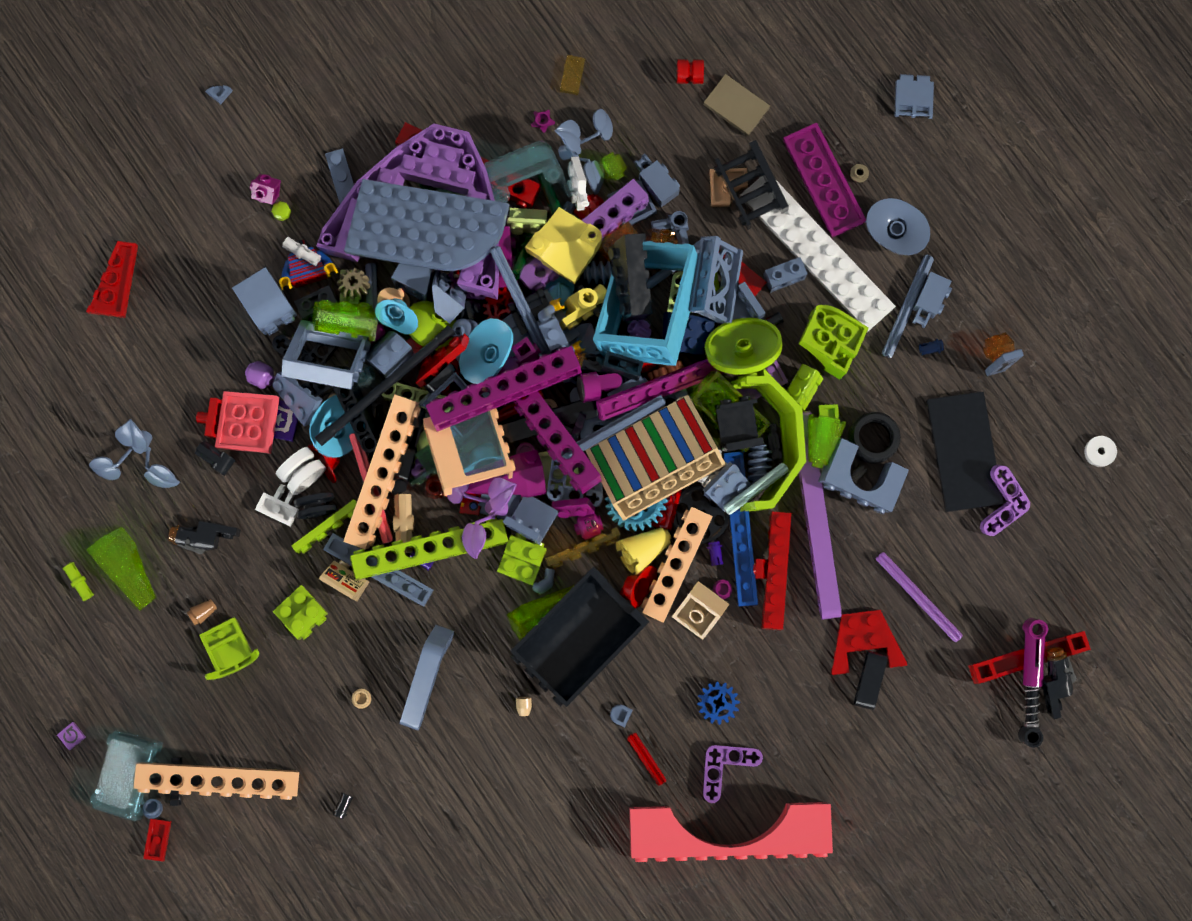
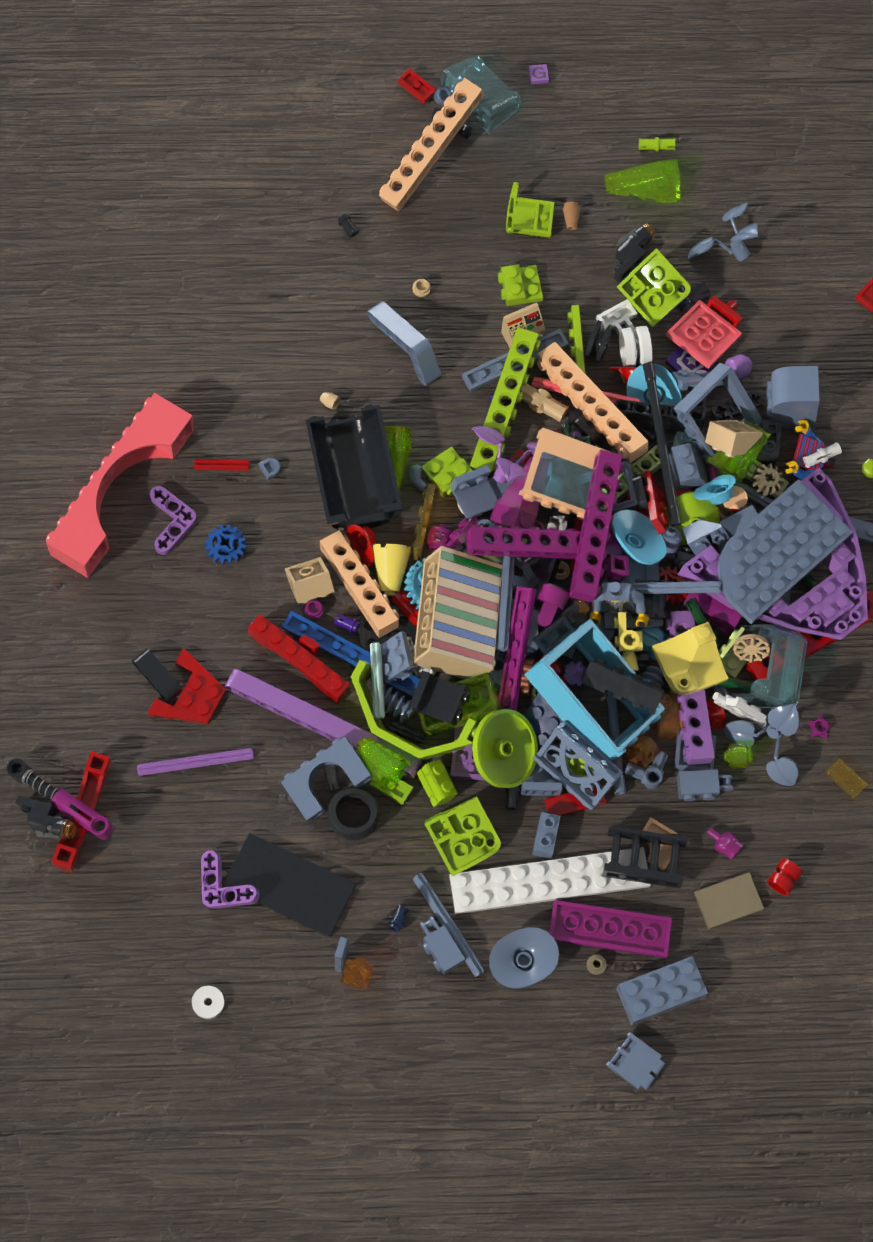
camera: 120 degrees right, 10 degrees down
(232, 489) = (654, 287): none -> lime slope
(342, 326) = (731, 437): none -> tan slope
(520, 202) = (751, 648): none -> tan wheel
(692, 133) = (725, 843): none -> magenta piece
(846, 109) = (662, 990): none -> sand blue brick

